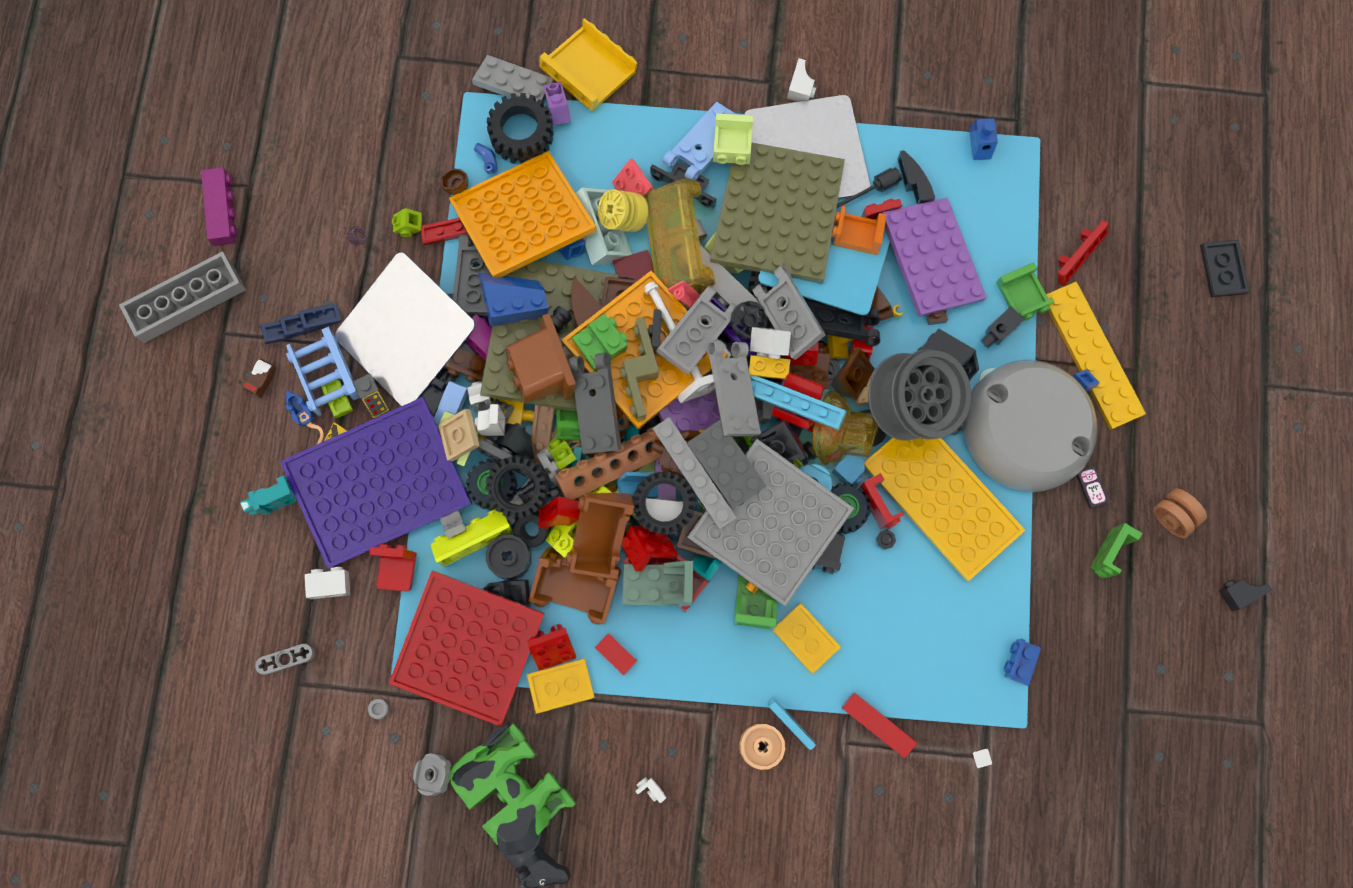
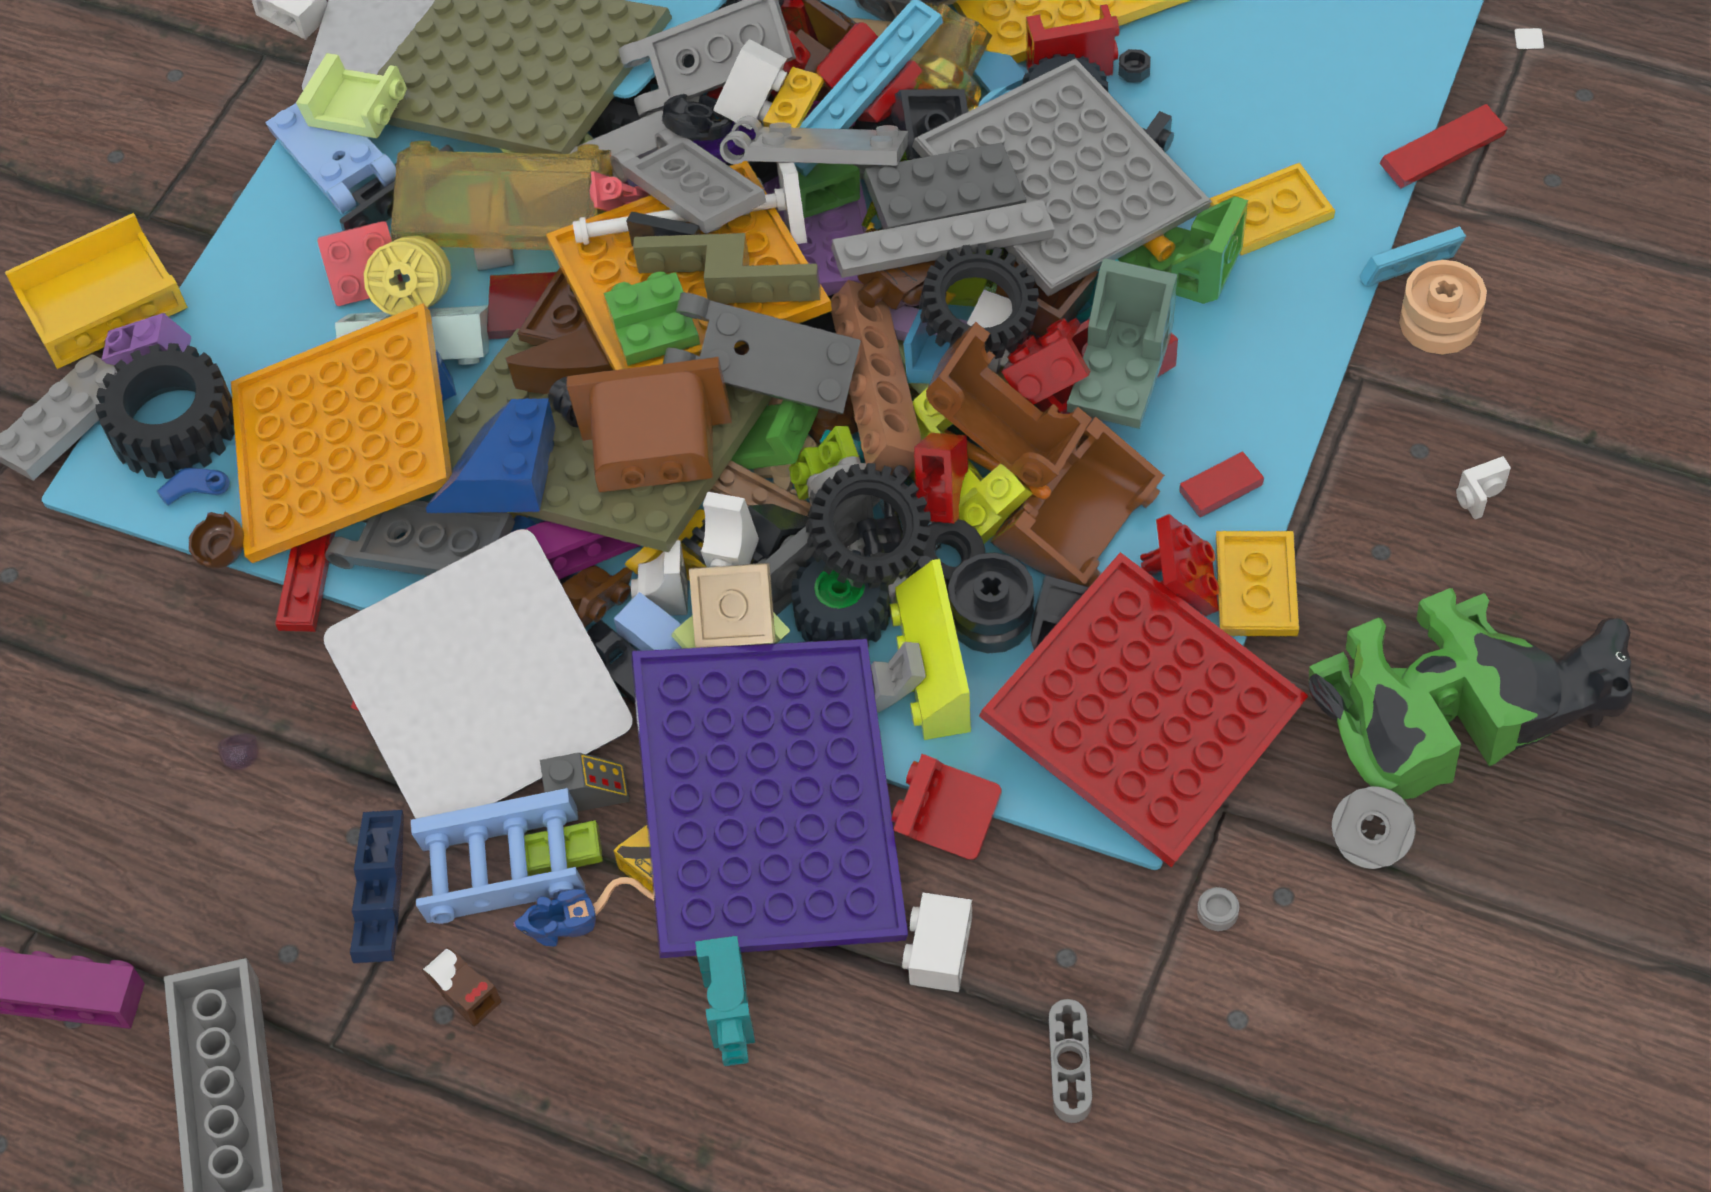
camera: 65 degrees left, 20 degrees down
(407, 222) = (258, 643): lime brick -> none

